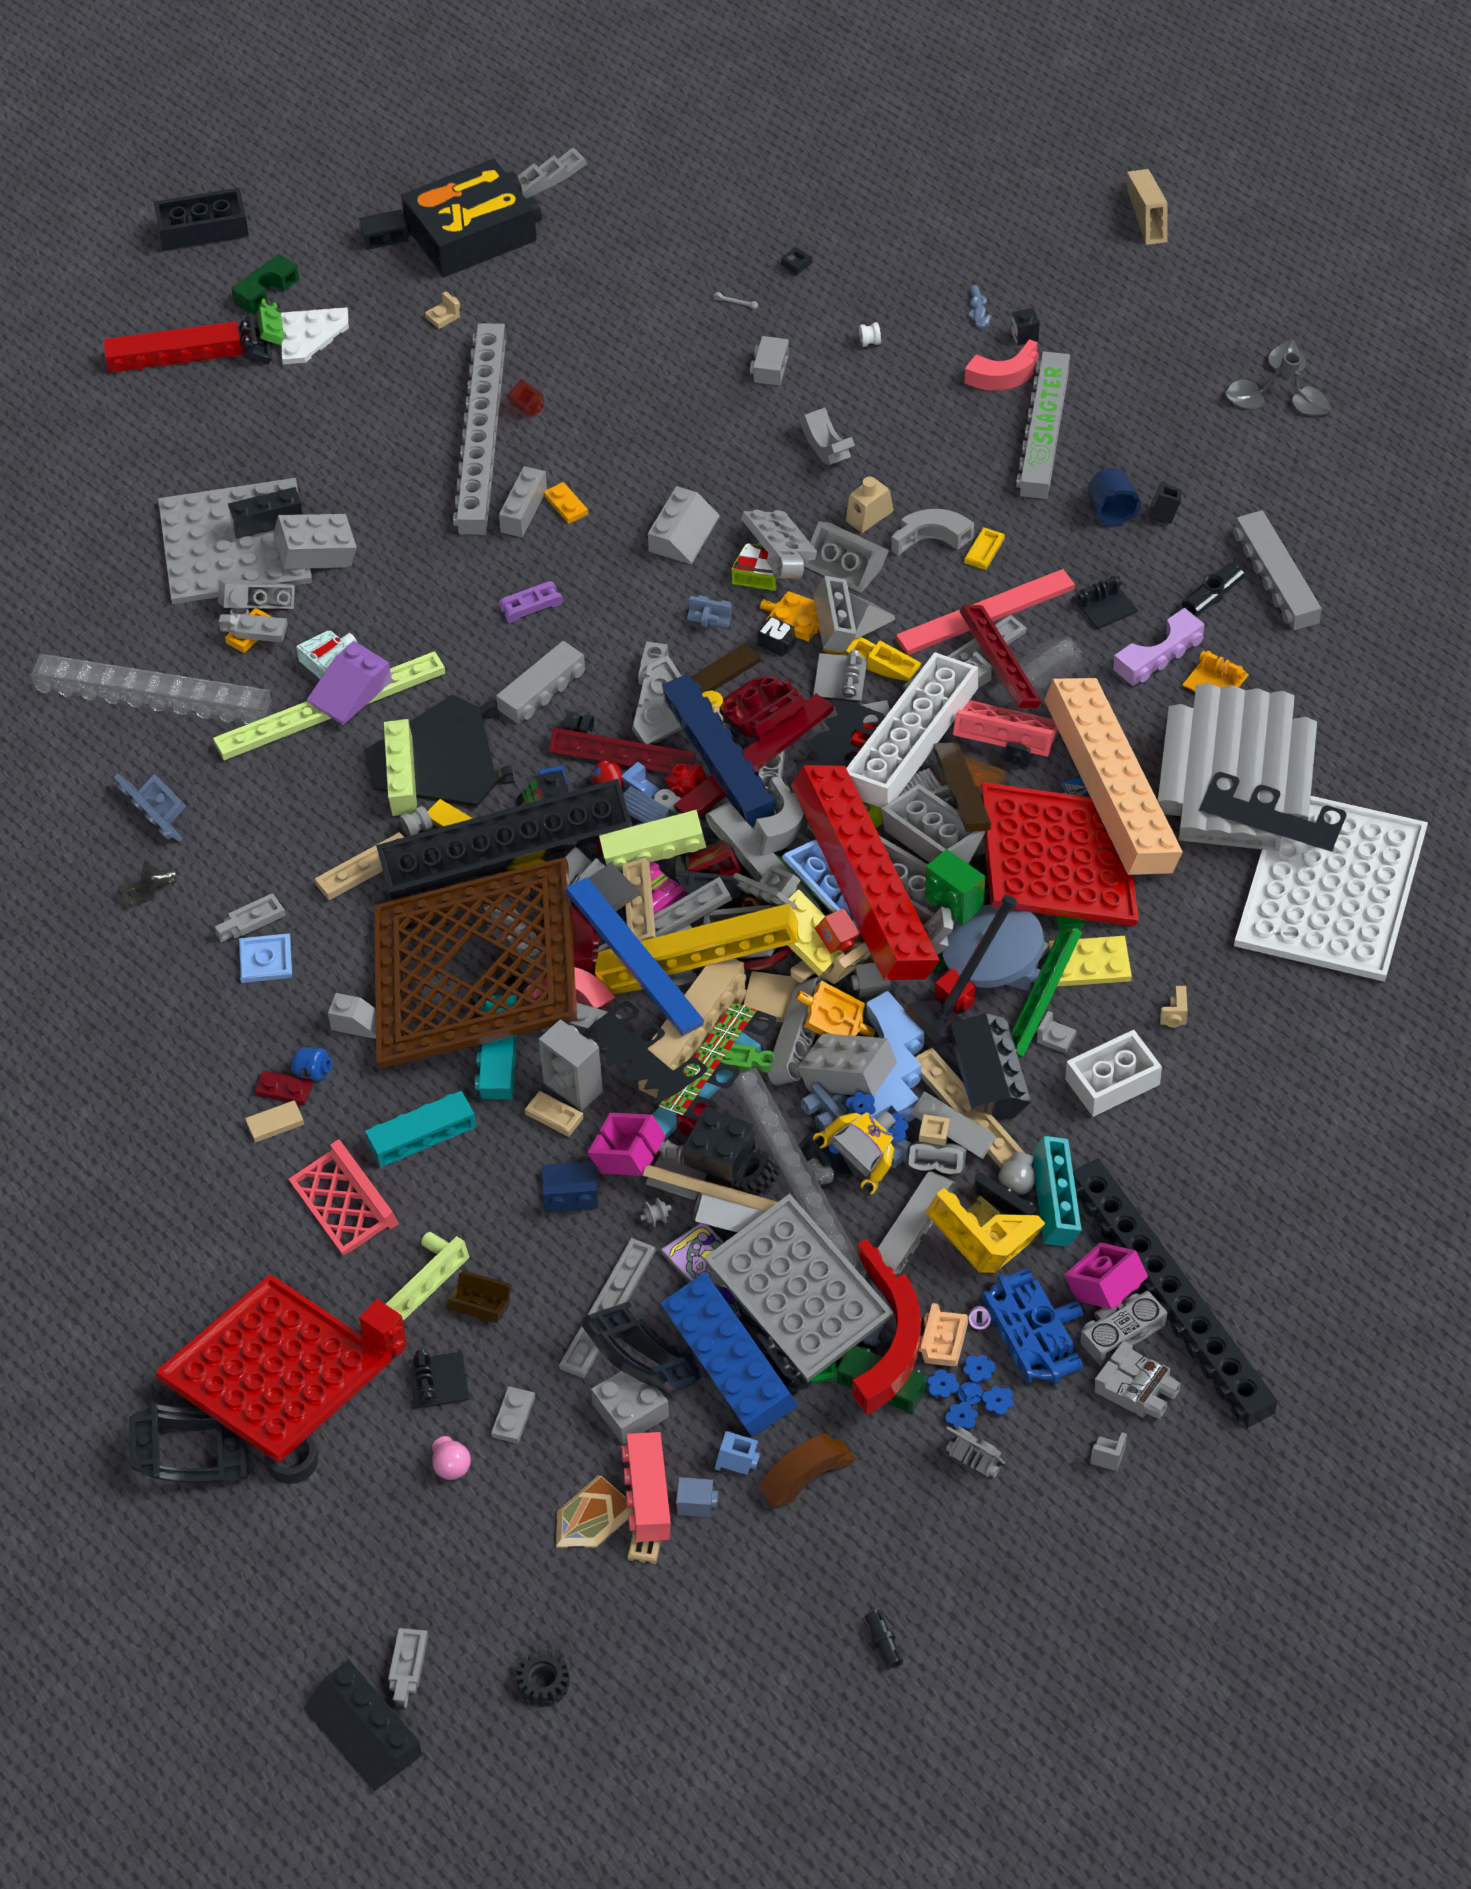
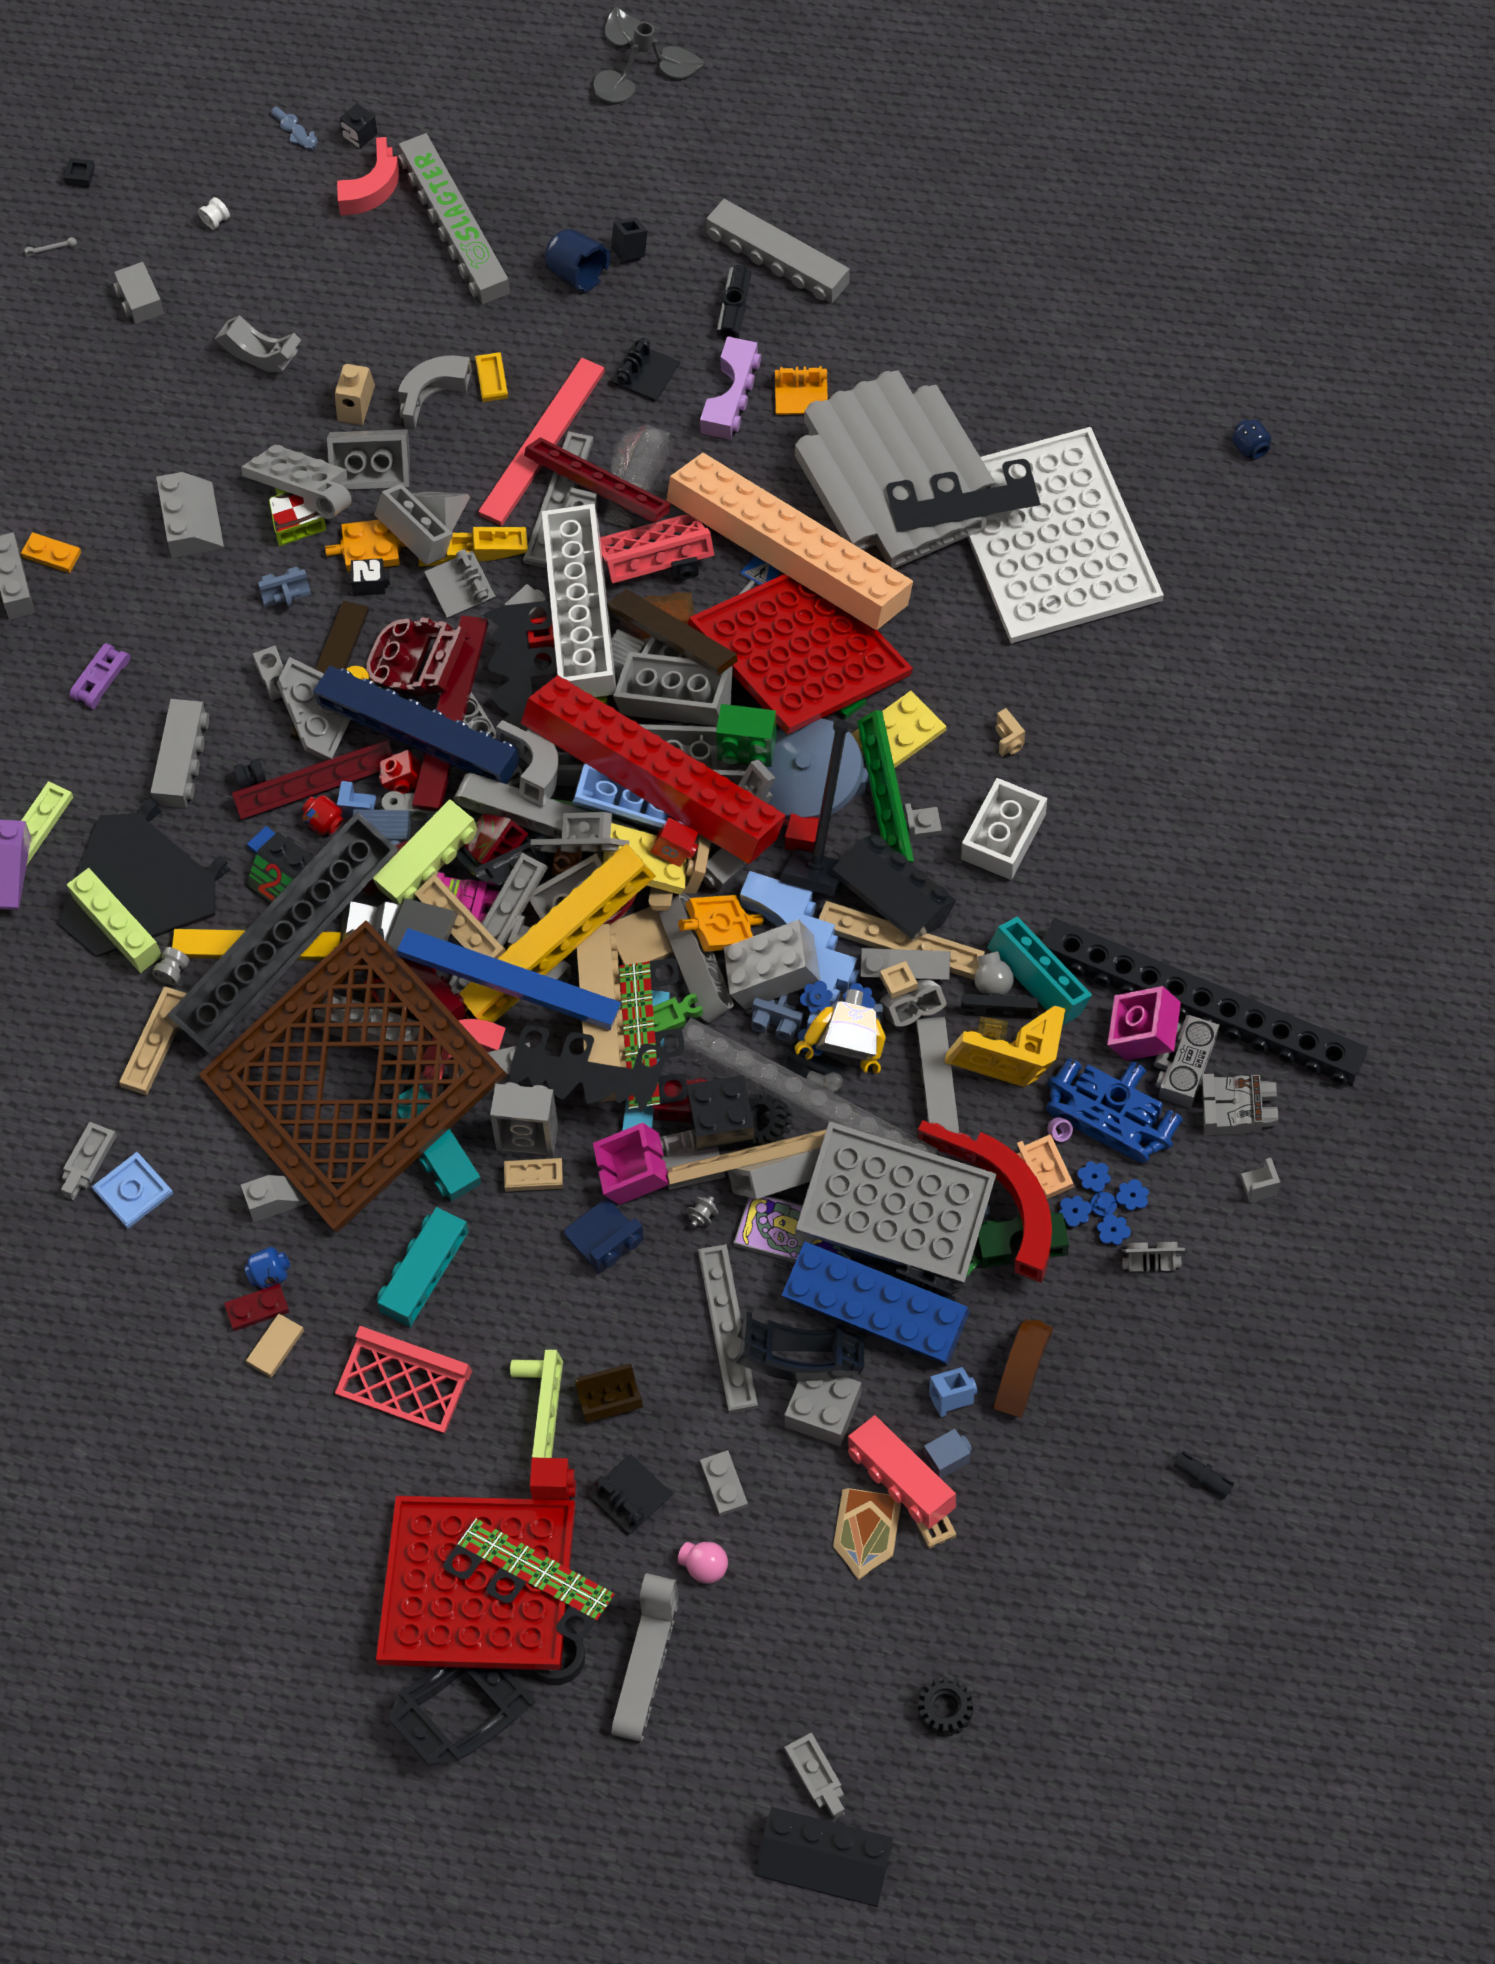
camera: 35 degrees left, 10 degrees up
(315, 1374) = (527, 1565): none -> piece
(354, 1498) = (658, 1604): none -> light grey beam

